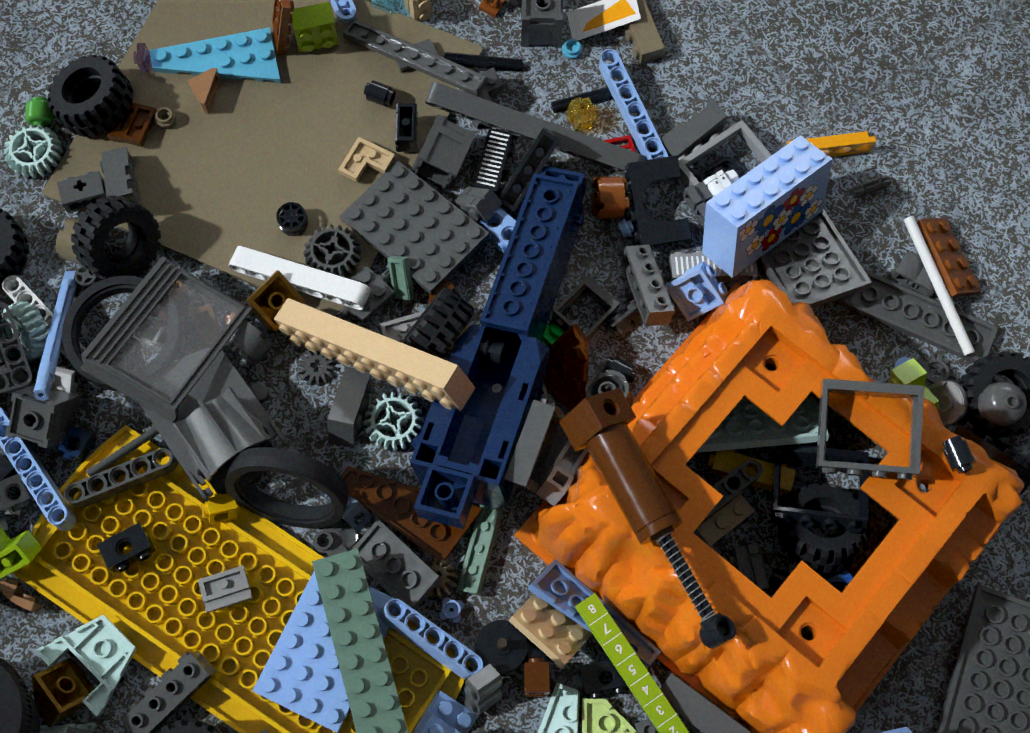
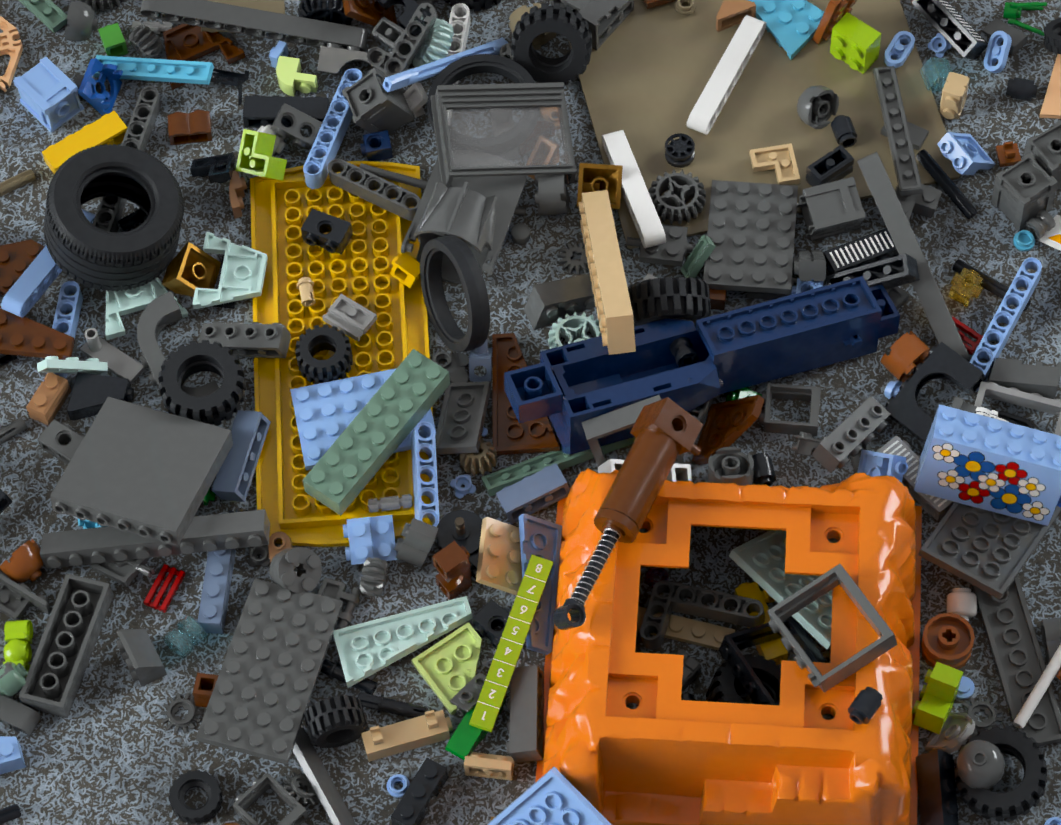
camera: 60 degrees right, 10 degrees down
(168, 607) = (306, 291): none -> tan pin
(226, 633) = (323, 339): none -> black tyre
(255, 136) = (726, 74): none -> white beam
(341, 94) = (817, 106): none -> dark grey cylinder
(427, 684) = (390, 503): none -> light grey axle
(470, 30) = (964, 153): none -> light blue plate
(506, 559) = (533, 493): none -> sand blue brick
(571, 27) = (1040, 224): none -> dark grey wheel
(839, 316) = (962, 602): none -> white head
(871, 346) = (947, 640): none -> dark orange wheel

